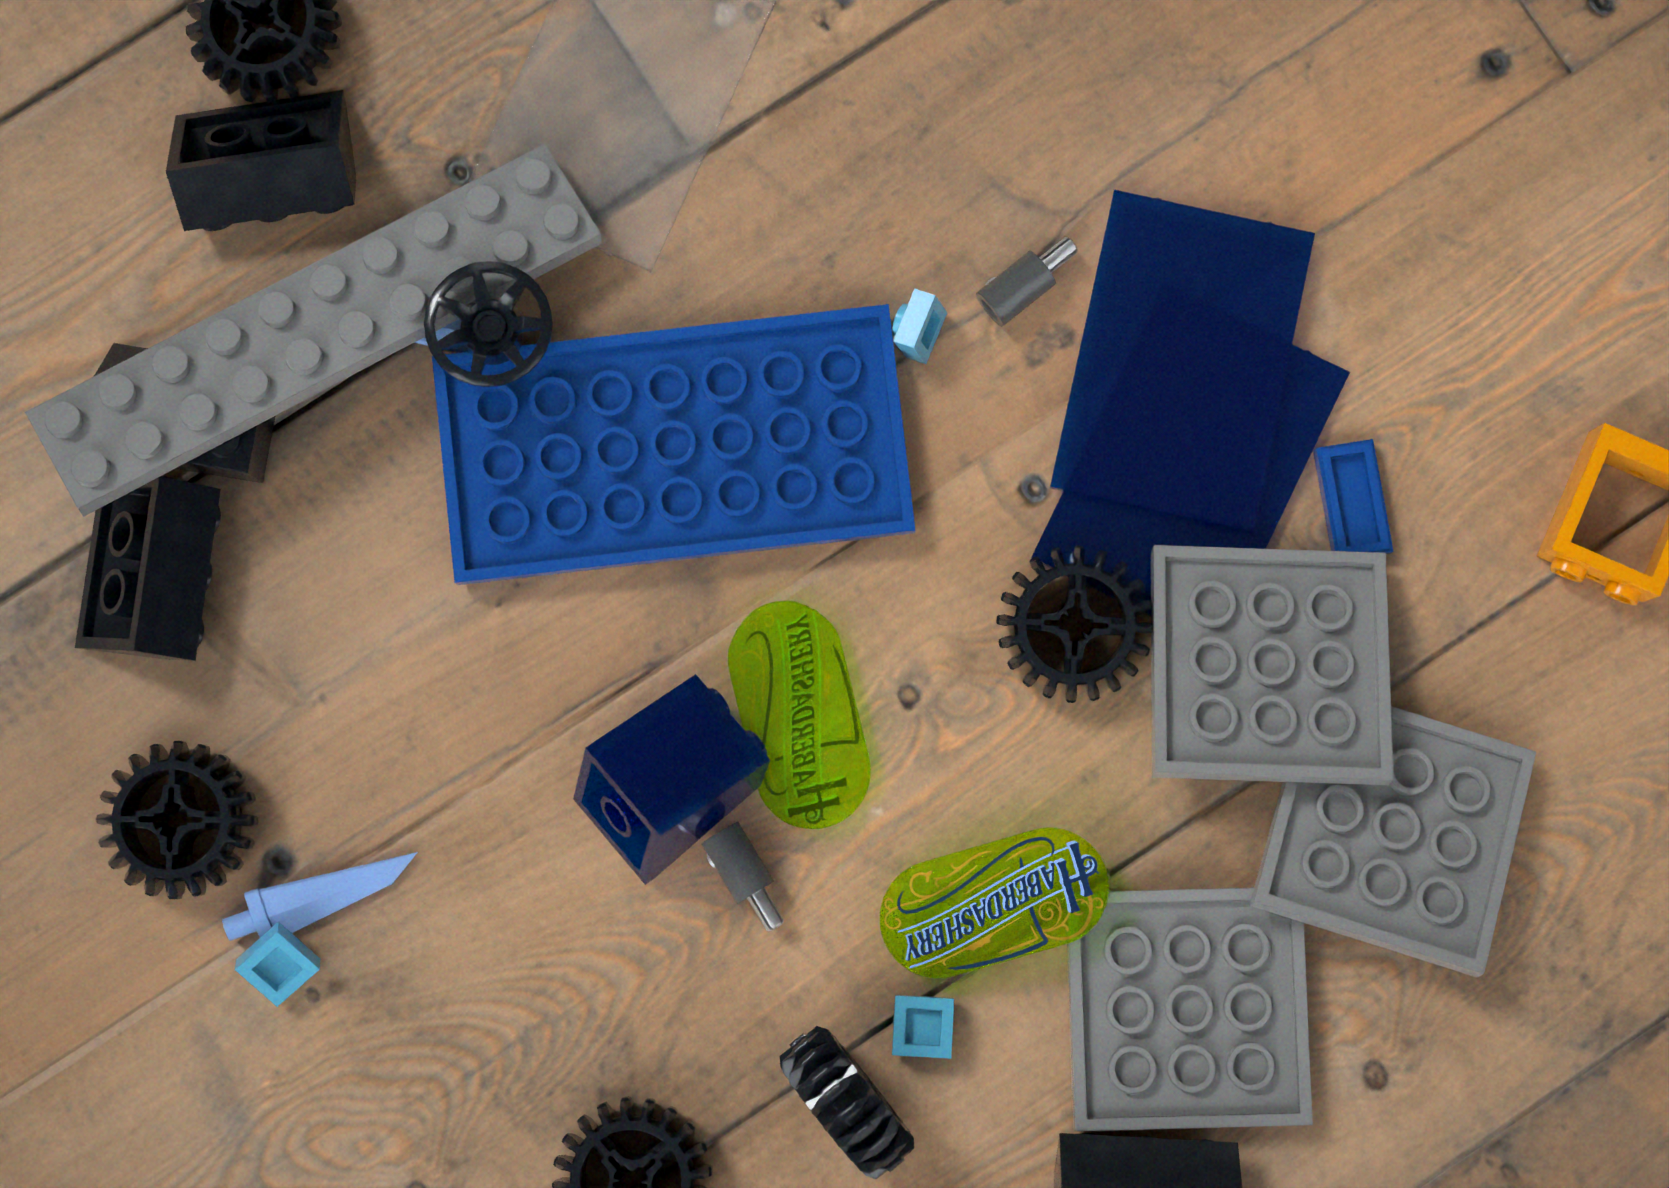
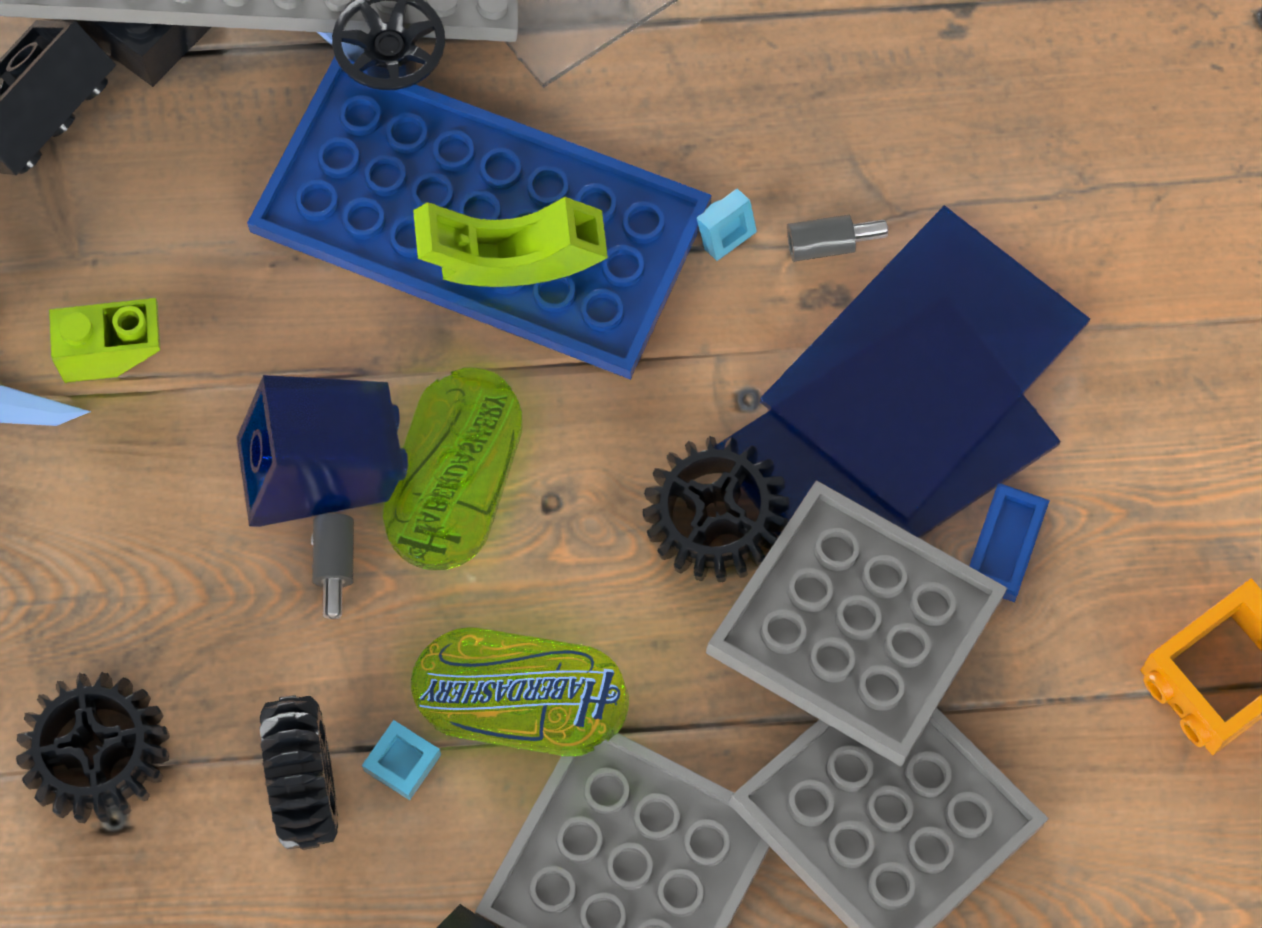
camera: 30 degrees right, 15 degrees down
(392, 778) = (103, 338): none -> lime slope
(738, 473) = (511, 251): none -> lime arch

